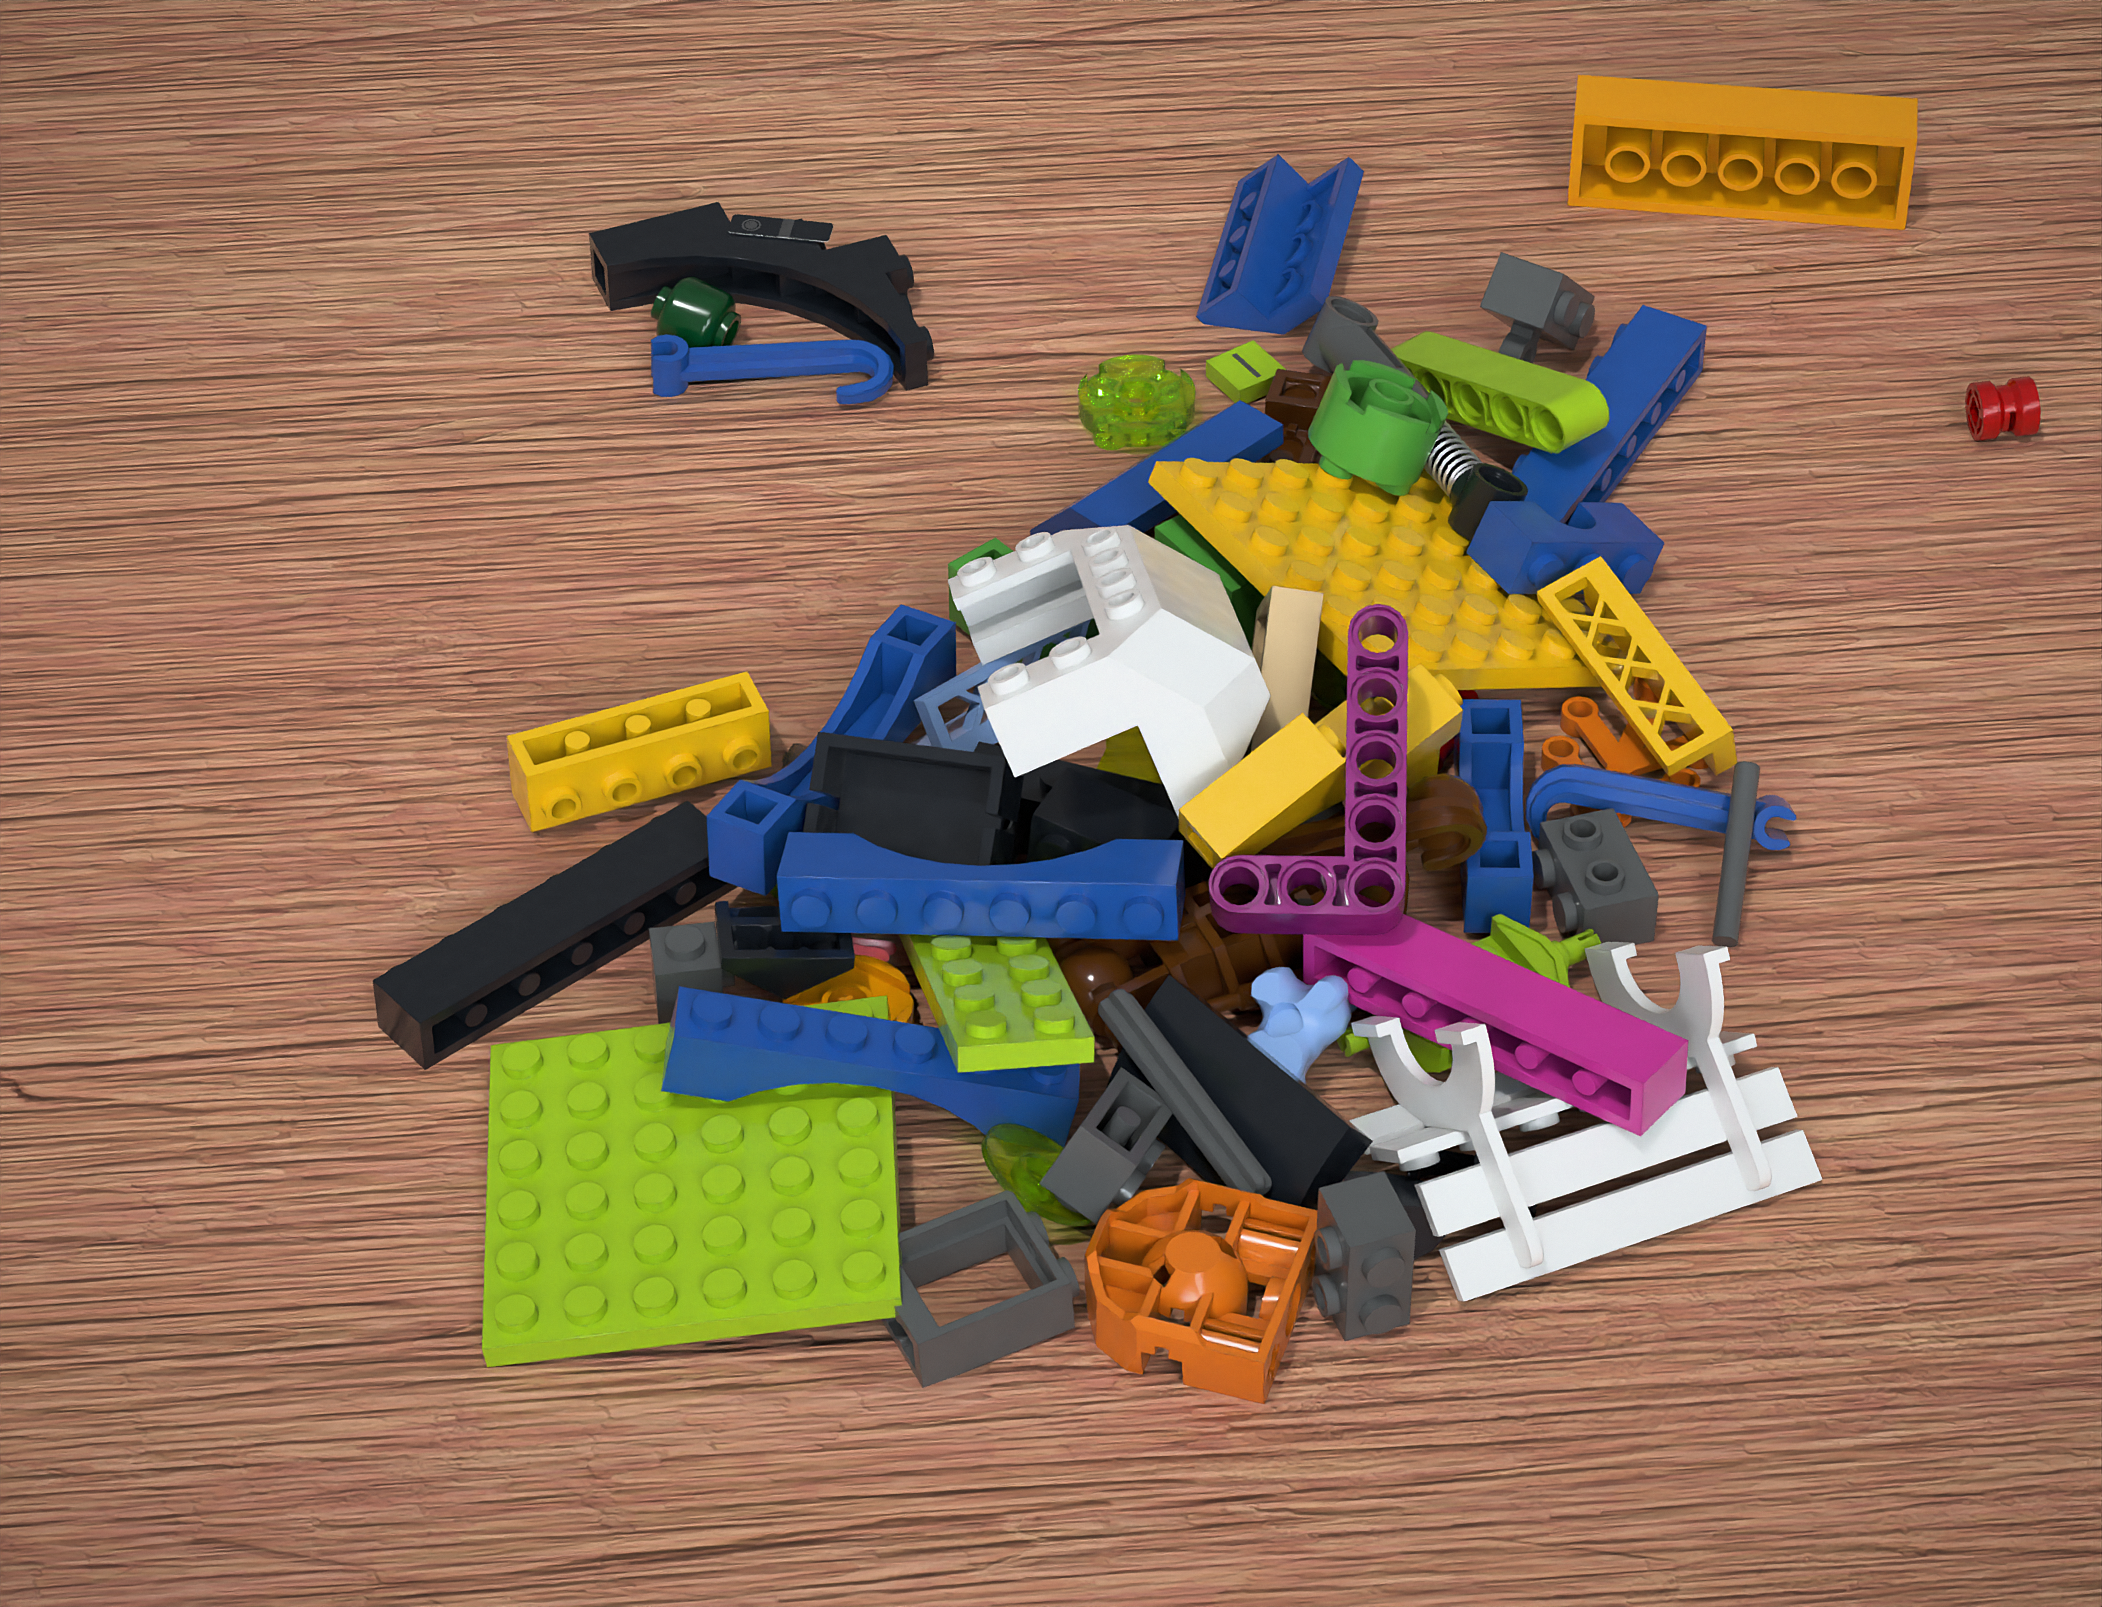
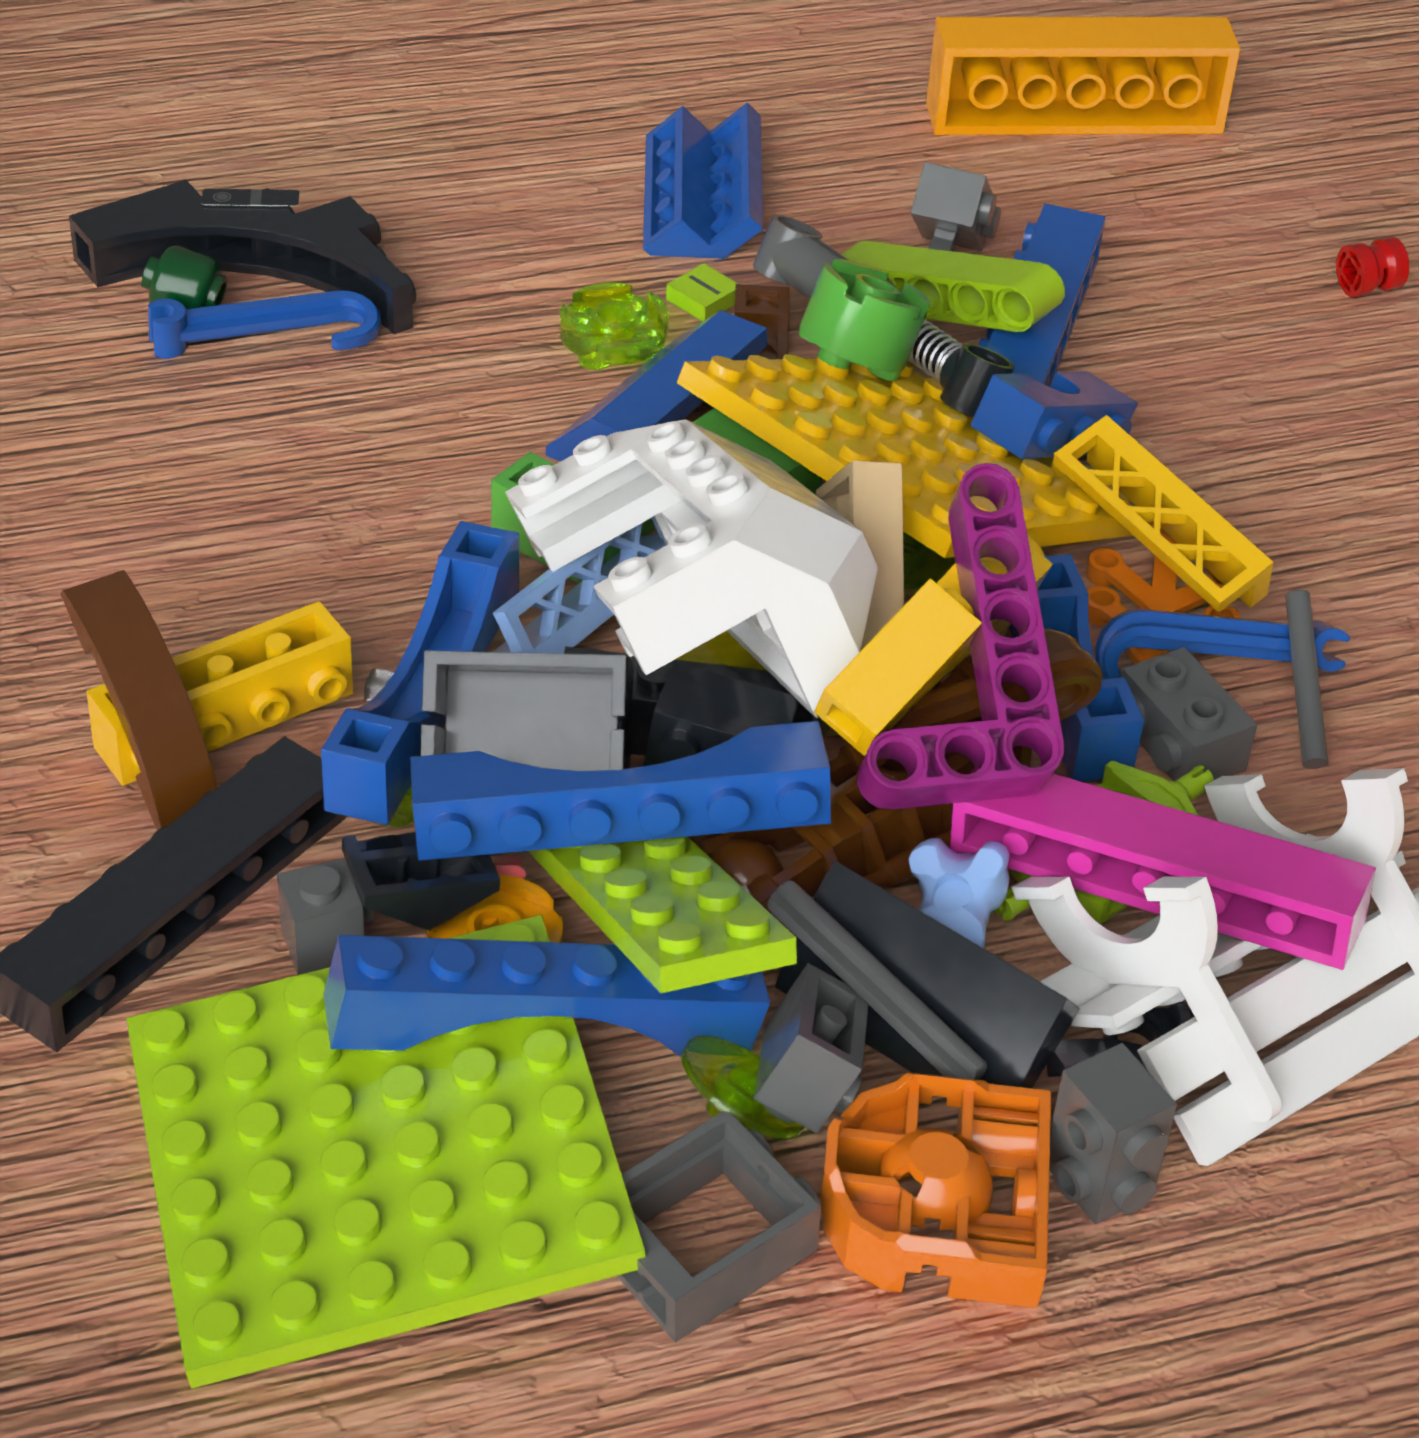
camera: 15 degrees left, 0 degrees up
(557, 743) = (145, 693): none -> reddish brown slope

